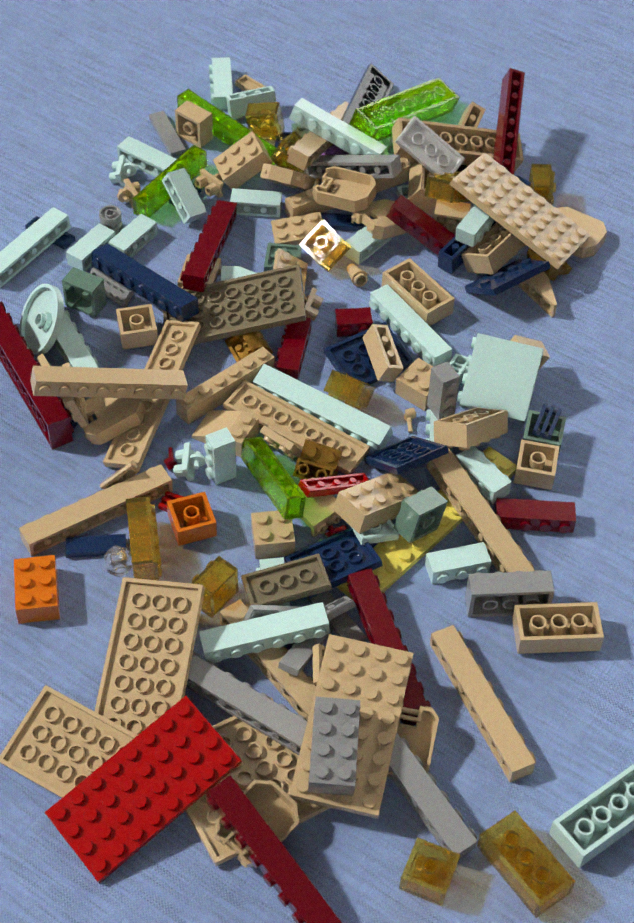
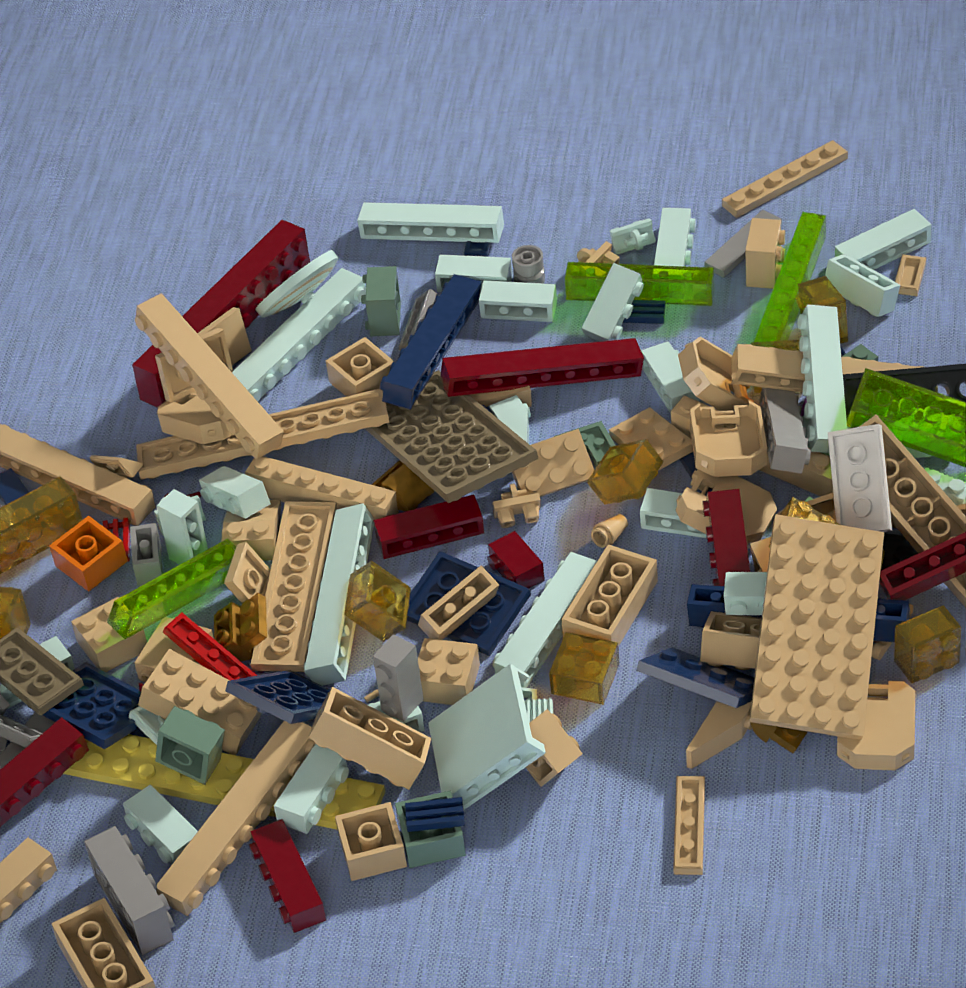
camera: 70 degrees right, 5 degrees down
(129, 97) = (784, 179): none -> tan plate
(199, 422) = (234, 492): none -> light aqua brick
(212, 183) = (677, 321): tan hips -> none
(218, 488) = (146, 553): none -> light grey brick
(242, 160) = (723, 322): tan brick -> none
(459, 324) = (584, 668): none -> clear yellow brick
(596, 331) = (689, 825): none -> tan tile

